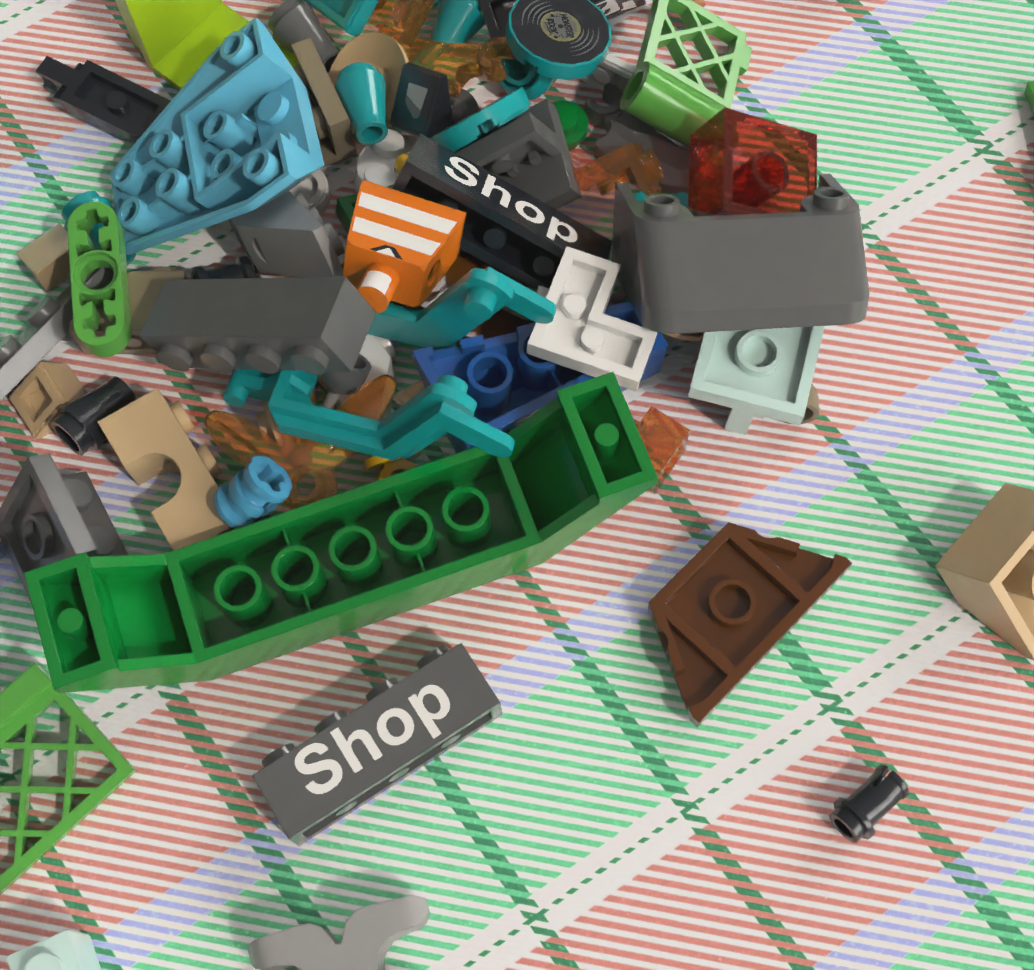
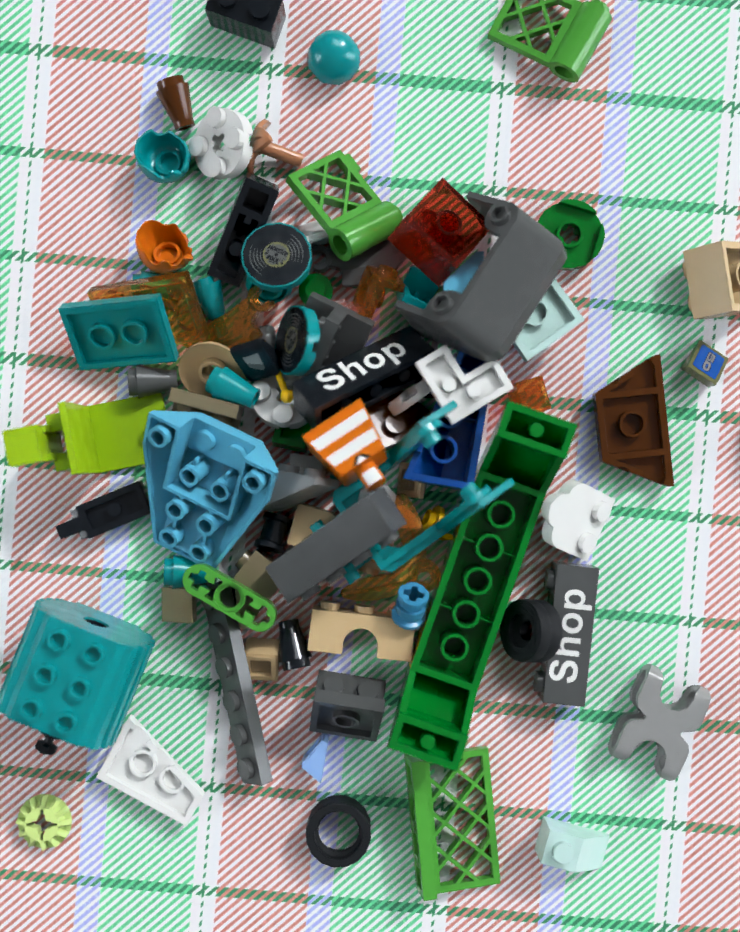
camera: 55 degrees left, 20 degrees up
(341, 681) = (545, 631): none -> black tyre
(543, 621) = (575, 518): none -> white plate
(887, 372) = (586, 226): none -> green plate
(895, 639) = (705, 364): none -> slope

